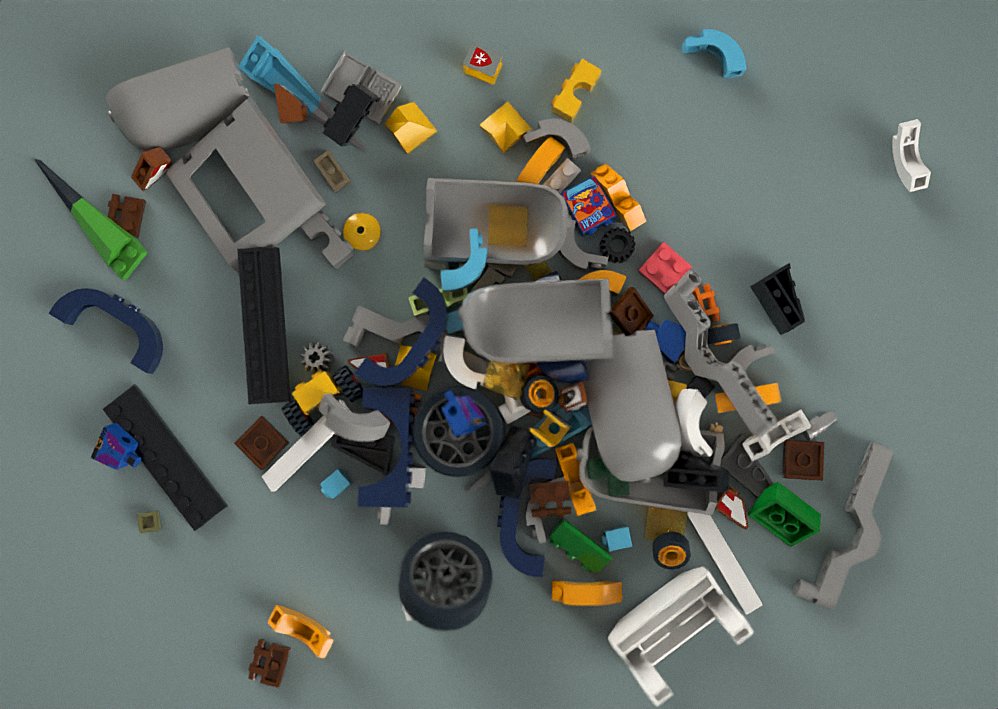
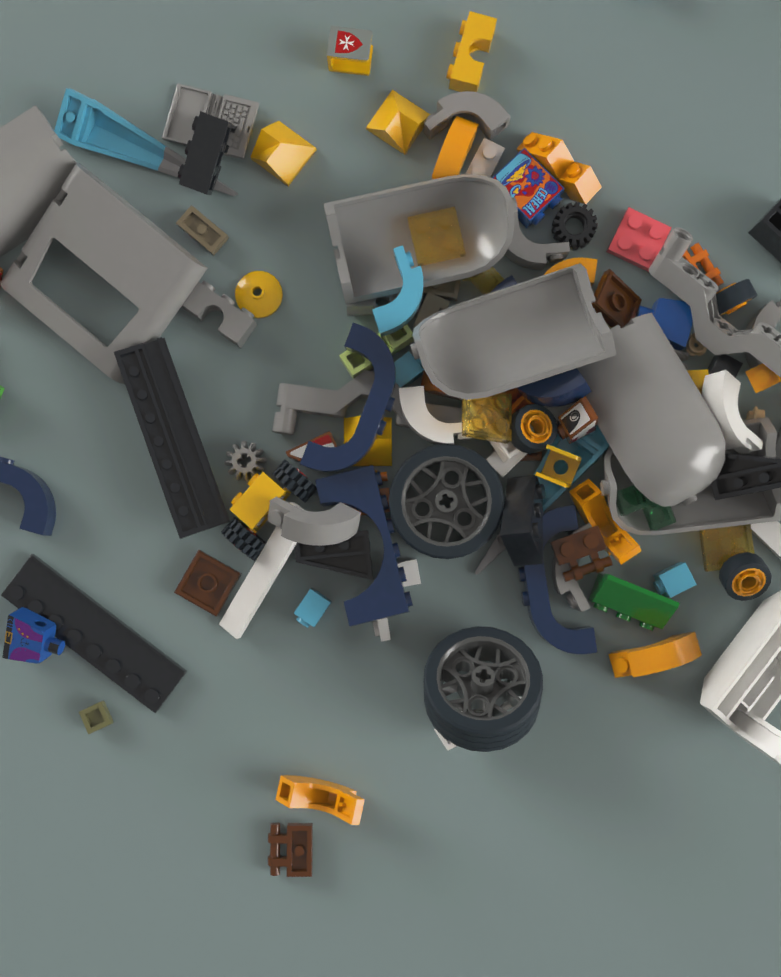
camera: 10 degrees left, 0 degrees up
(290, 106) = (130, 165): dark orange slope -> none
(462, 413) = (447, 476): blue torso -> none

